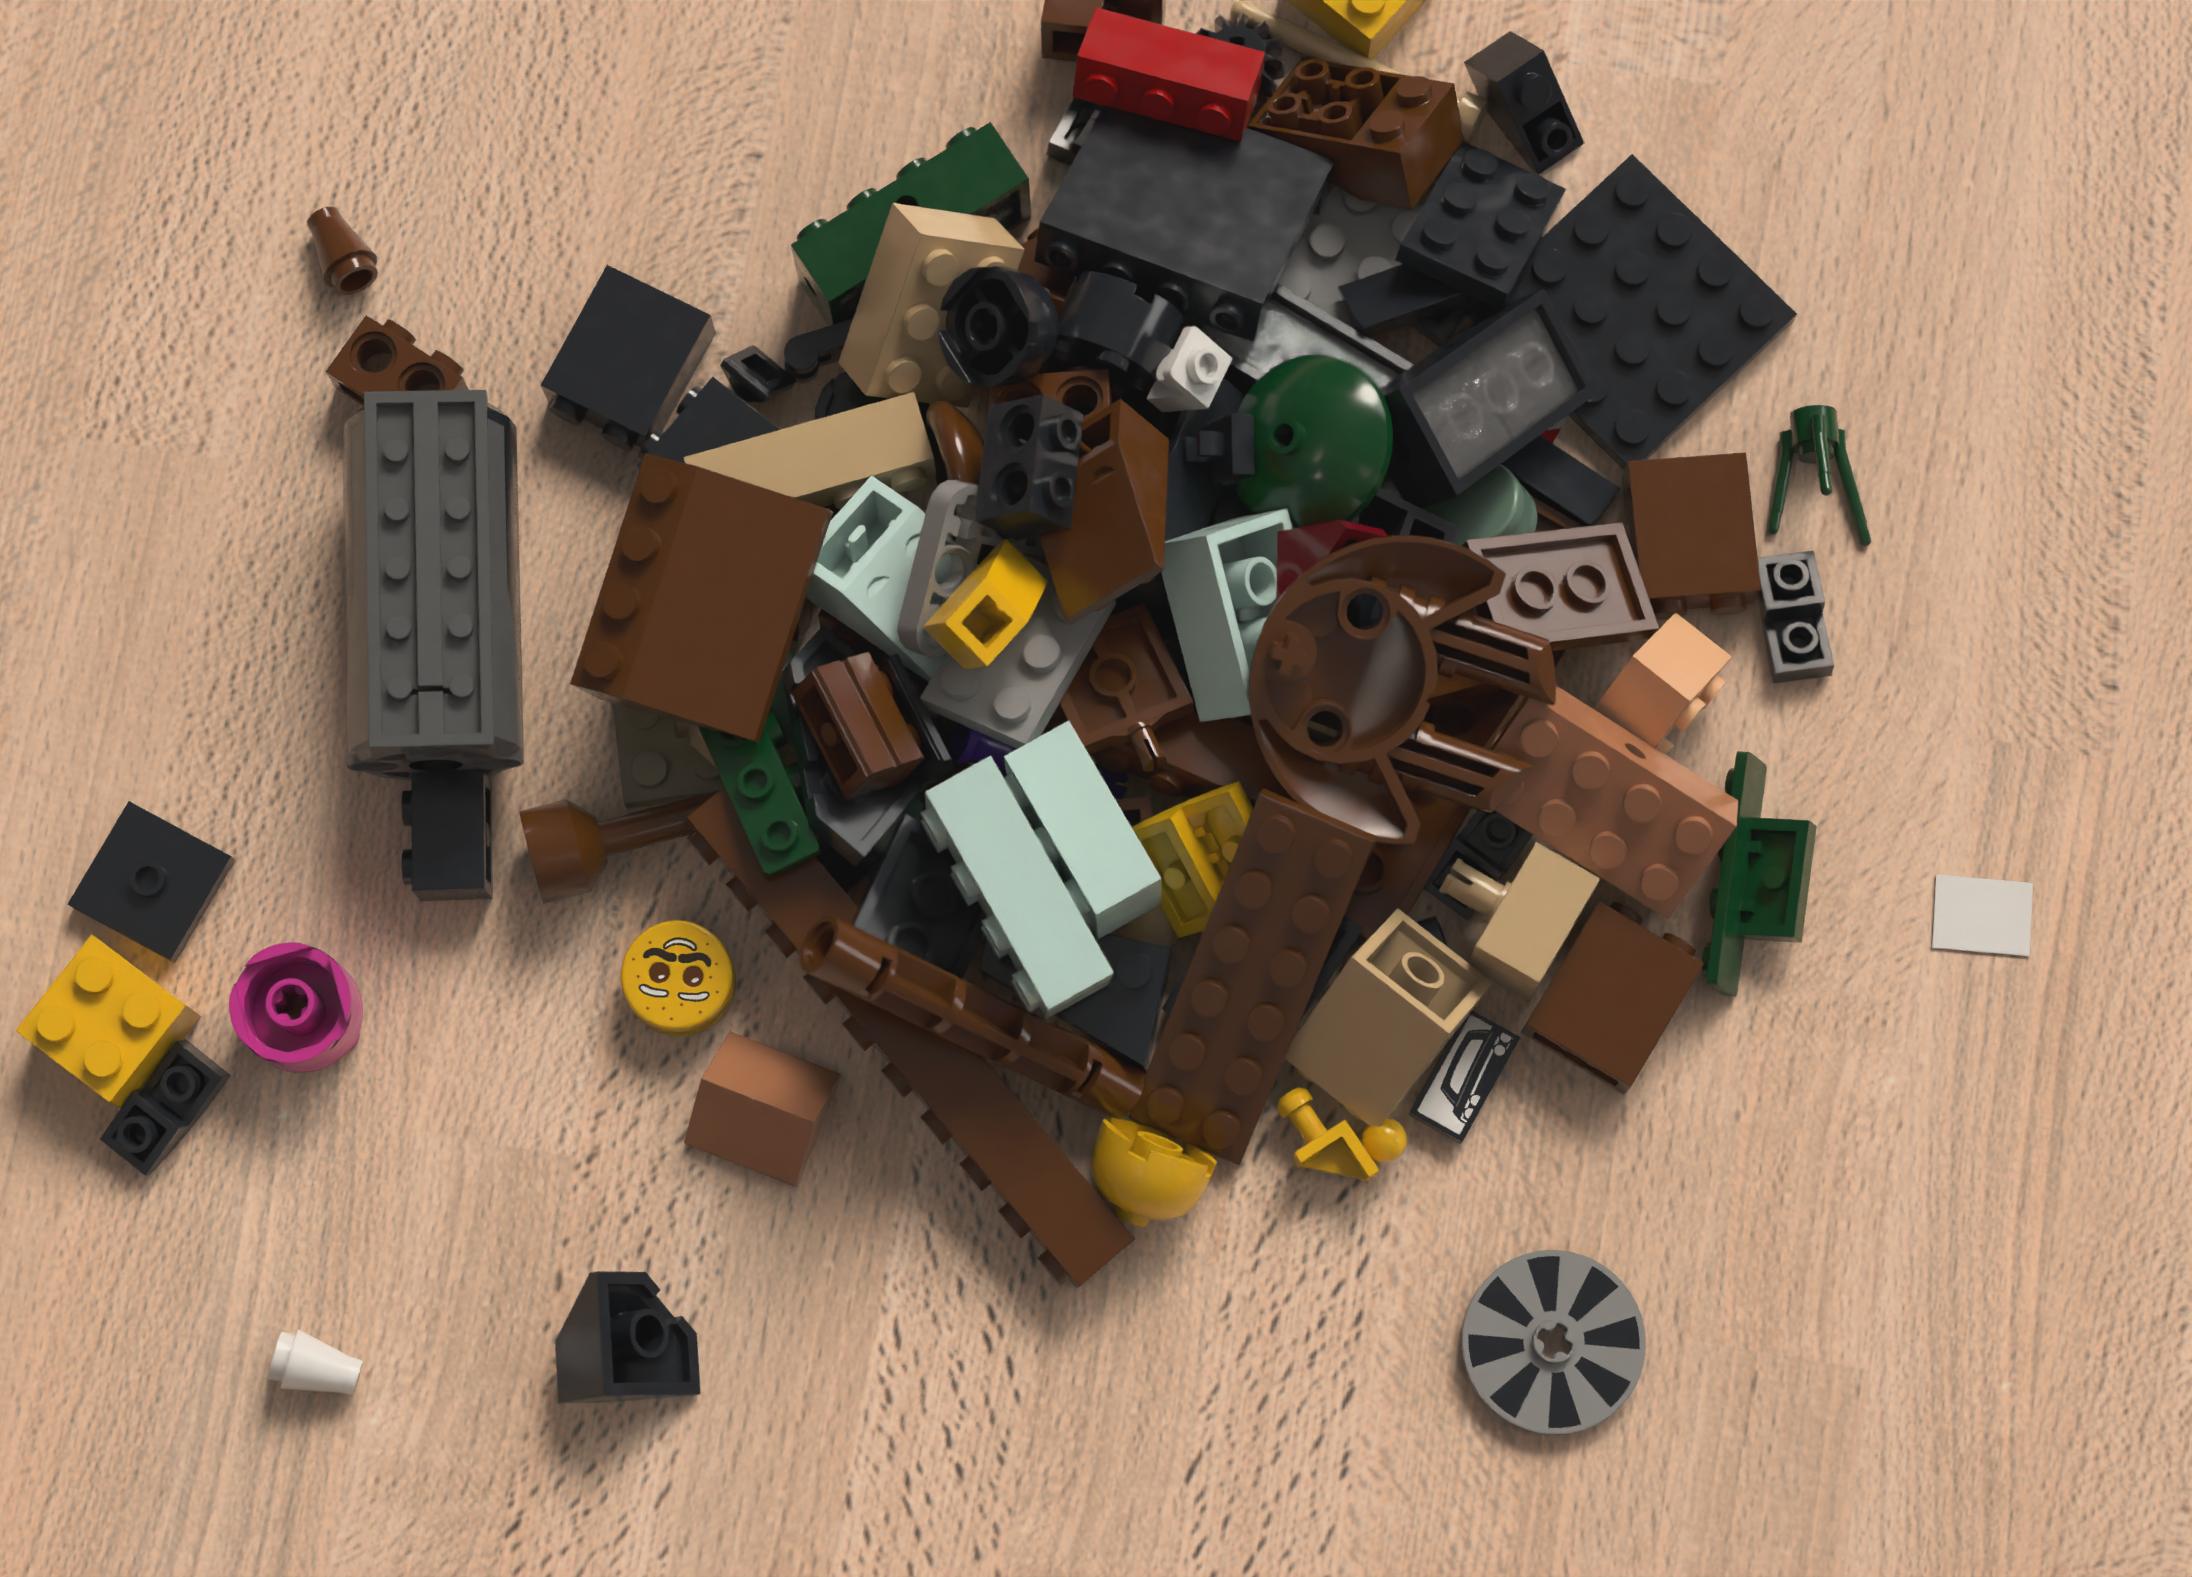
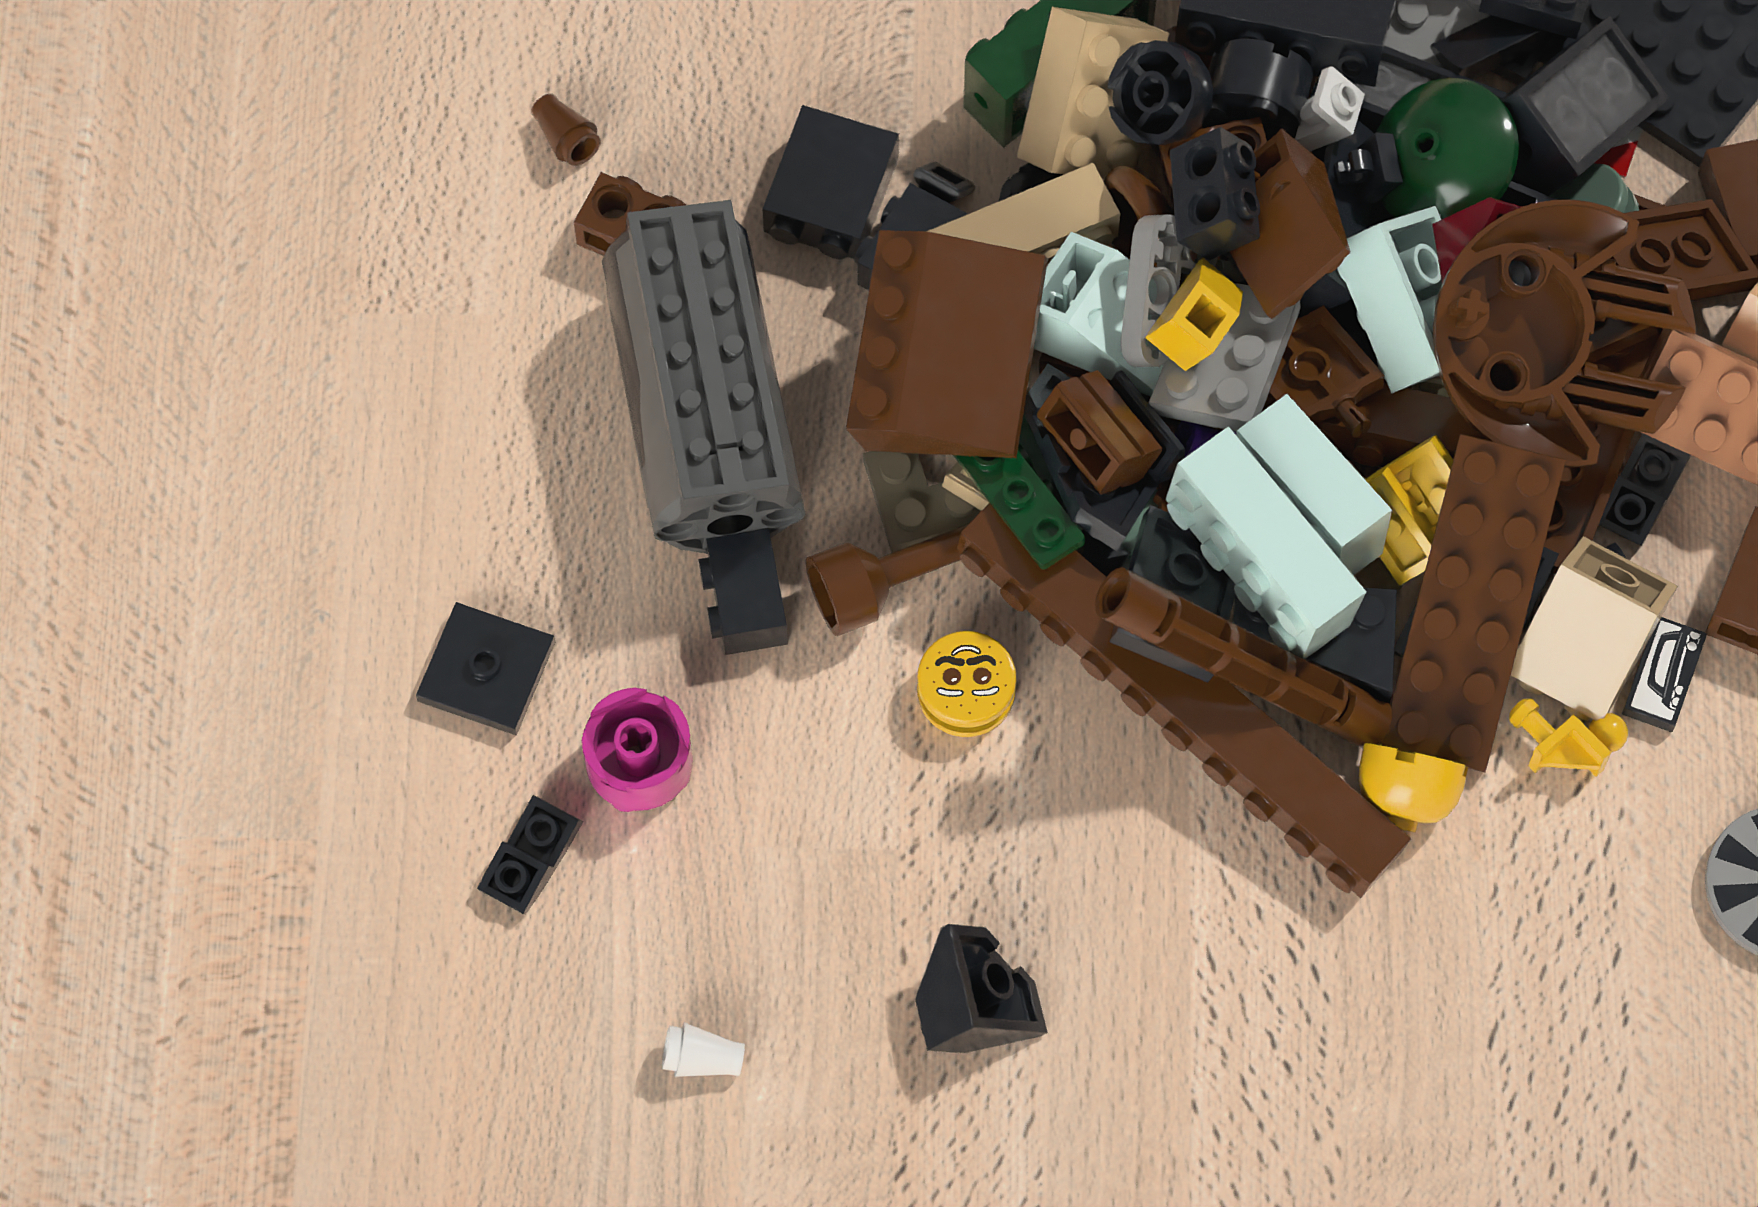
camera: 10 degrees left, 10 degrees down
(107, 1022) = (470, 786): yellow brick -> none
(761, 1108) = (1057, 785): nougat slope -> none
(813, 350) = (993, 154): black plate -> none
(1524, 917) = (1697, 528): tan brick -> none
(1562, 481) = (1650, 177): black slope -> none

